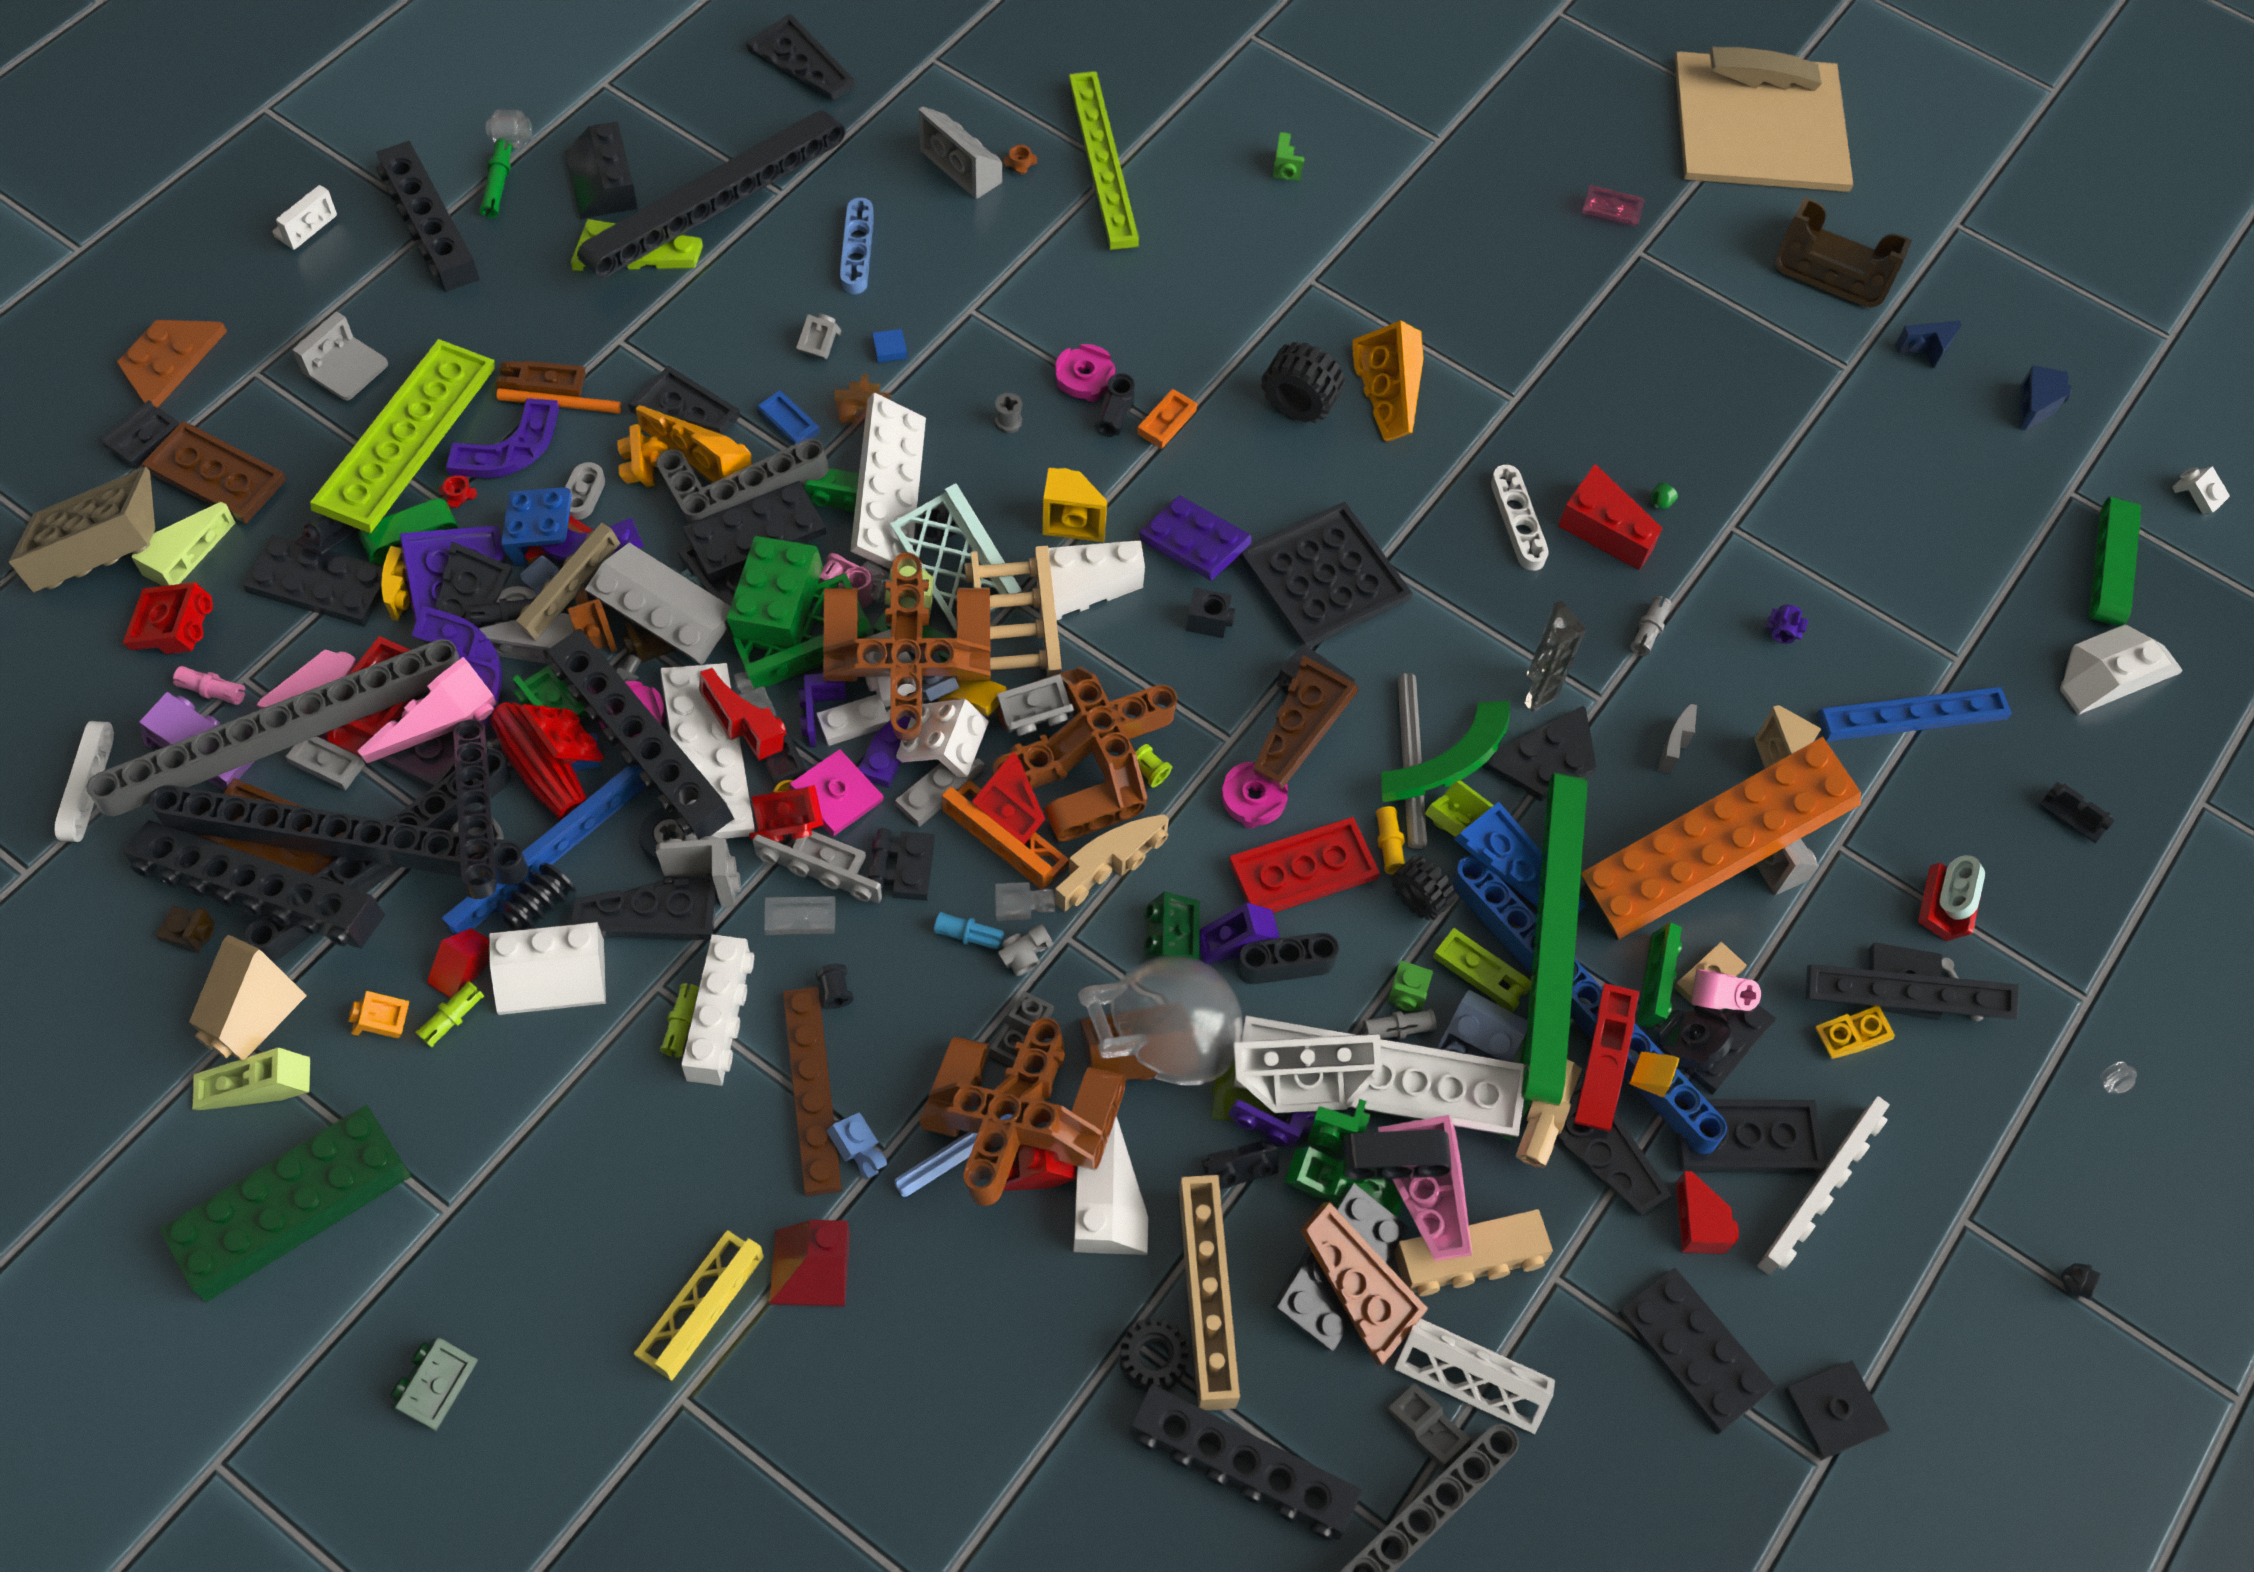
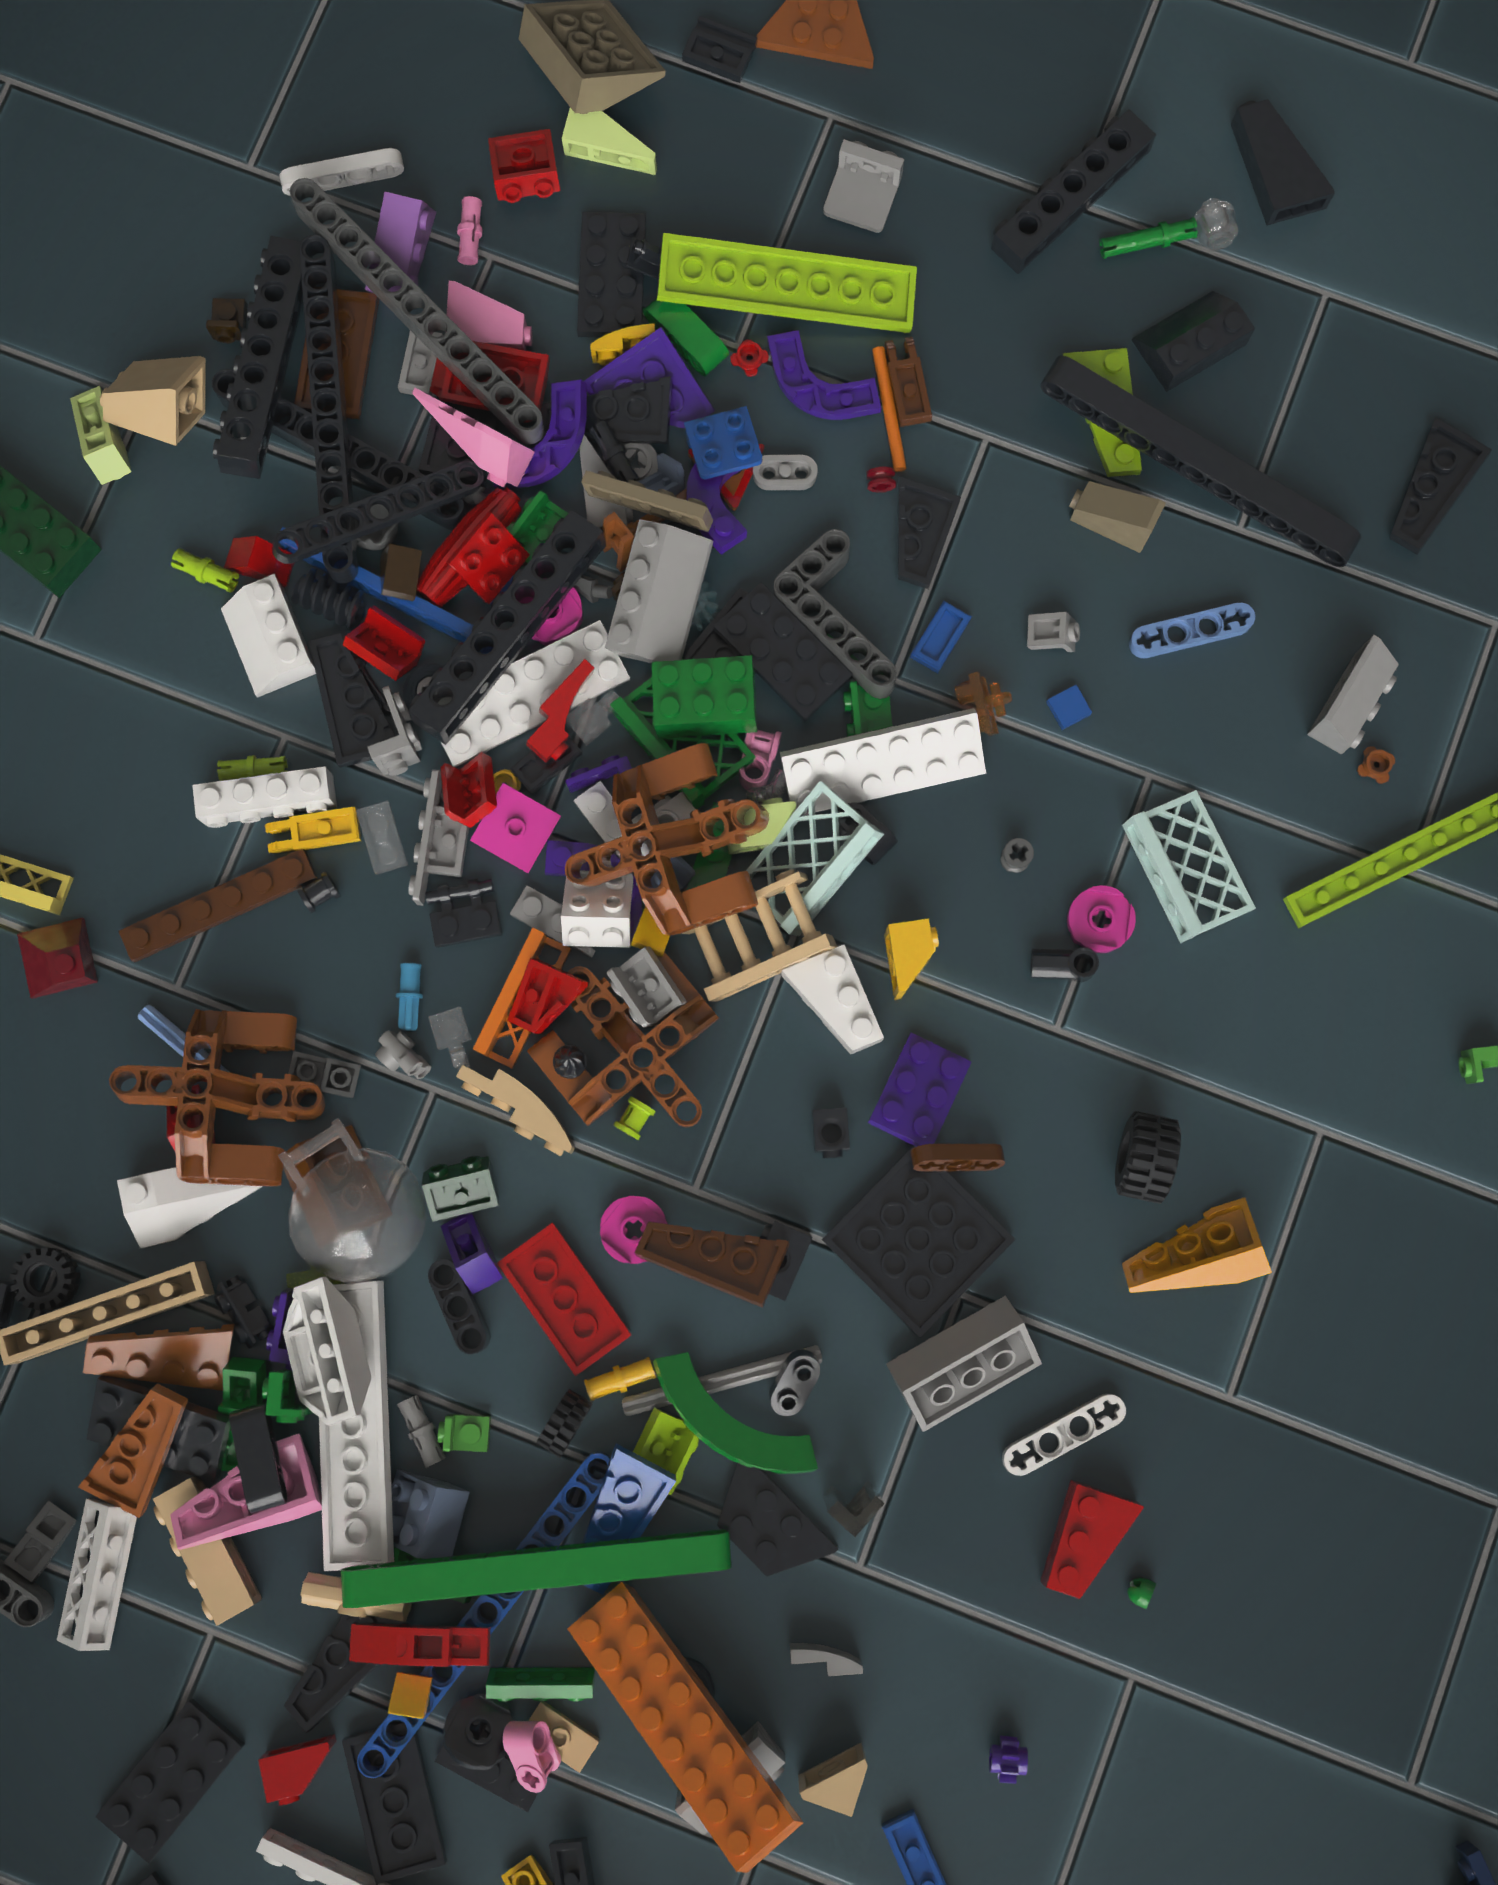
camera: 80 degrees right, 20 degrees up
(214, 471) = (698, 131): reddish brown plate -> none
(305, 218) = (1024, 80): white bracket -> none
(378, 1015) = (186, 512): light orange bracket -> none
(475, 77) = (1278, 165): none -> black slope
(537, 818) = (399, 571): none -> dark brown slope
(603, 859) = (385, 644): none -> red bracket
(623, 419) = (881, 479): none -> dark red bush
(643, 454) = (842, 513): light orange hips -> none
(705, 451) = (862, 581): light orange wedge -> none
(736, 258) = (1116, 514): none -> dark tan slope
(769, 974) = (316, 830): none -> yellow hinge
(856, 1140) = (175, 958): medium blue plate -> none
(1061, 315) = (1162, 871): none -> light aqua fence
(1083, 789) = (570, 1061): none -> black plate
(1167, 418) = (1067, 1022): orange plate -> none
(1262, 520) = (957, 1157): none -> reddish brown beam
(1269, 1241) = (173, 1358): none -> dark orange wing
(1428, 698) = (794, 1385): none -> black plate
(1441, 568) = (964, 1363): none -> light grey slope
(1482, 969) = (501, 1499): lime plate -> none
(1651, 626) = (964, 1606): light grey pin -> none

